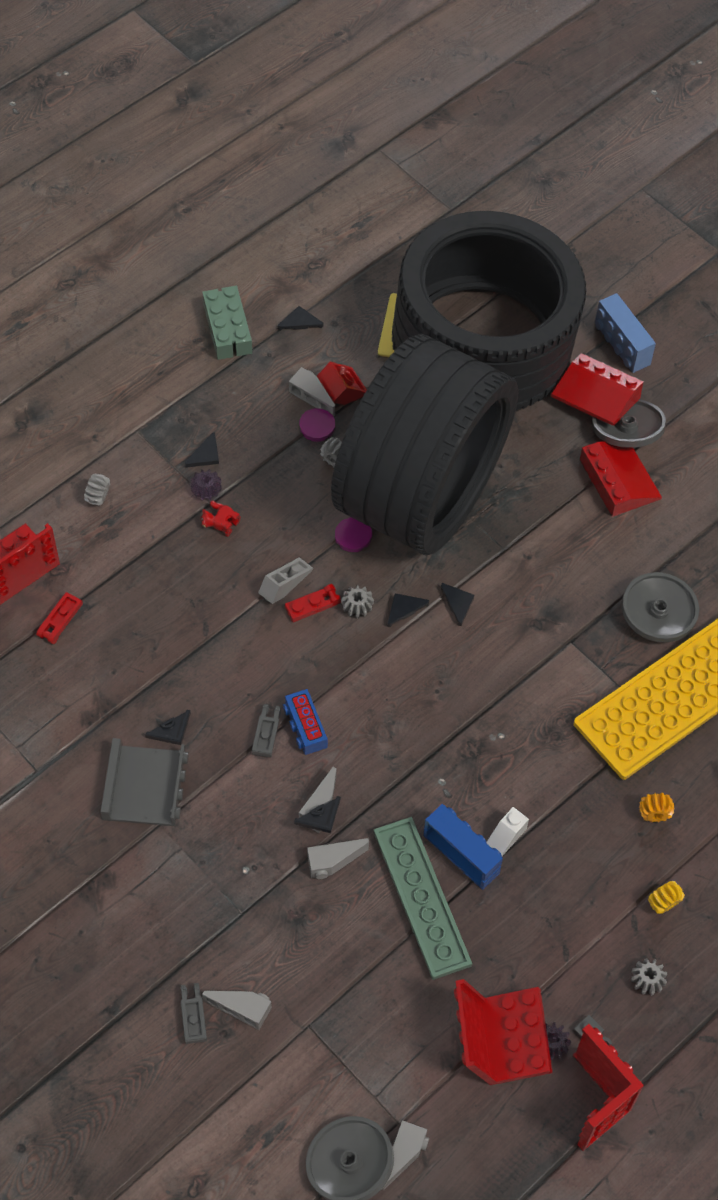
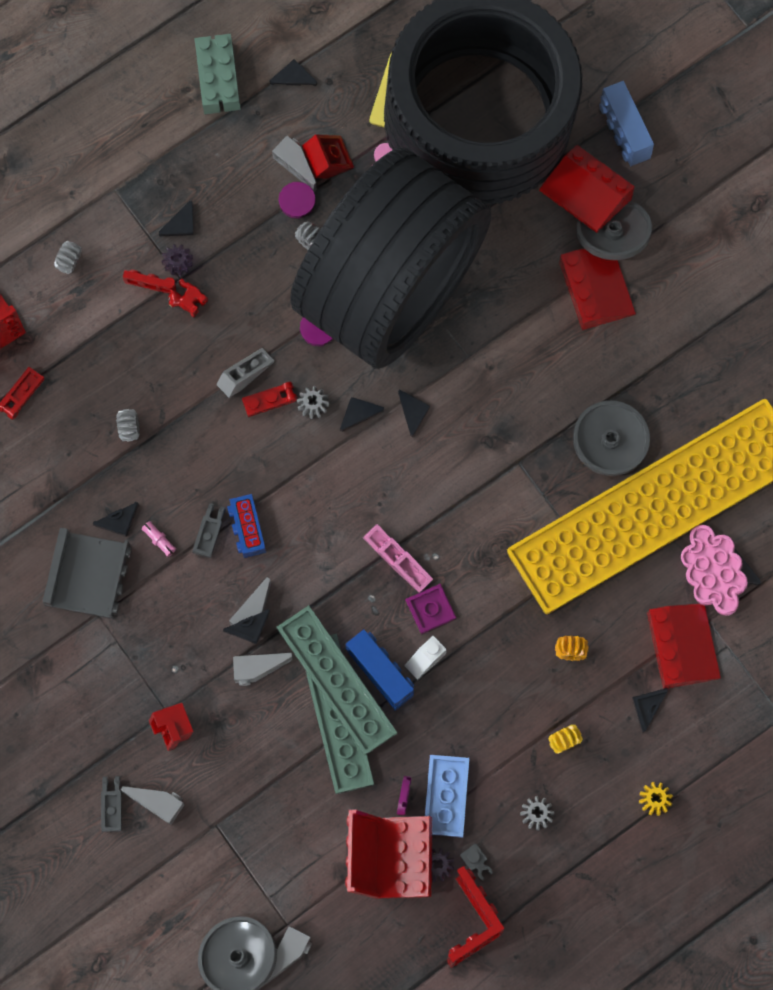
camera: 10 degrees right, 15 degrees up
(173, 636) = (128, 425): none -> light grey gear
(180, 506) = (149, 281): none -> red plate
(215, 743) = (159, 539): none -> bright pink pin
(251, 922) = (172, 725): none -> red plate
(419, 861) = (336, 680): none -> sand green plate
(464, 740) = (397, 558): none -> bright pink slope
(504, 786) = (430, 609): none -> magenta tile
(507, 968) = (404, 795): none -> magenta tile
(551, 967) = (447, 794): none -> light blue plate

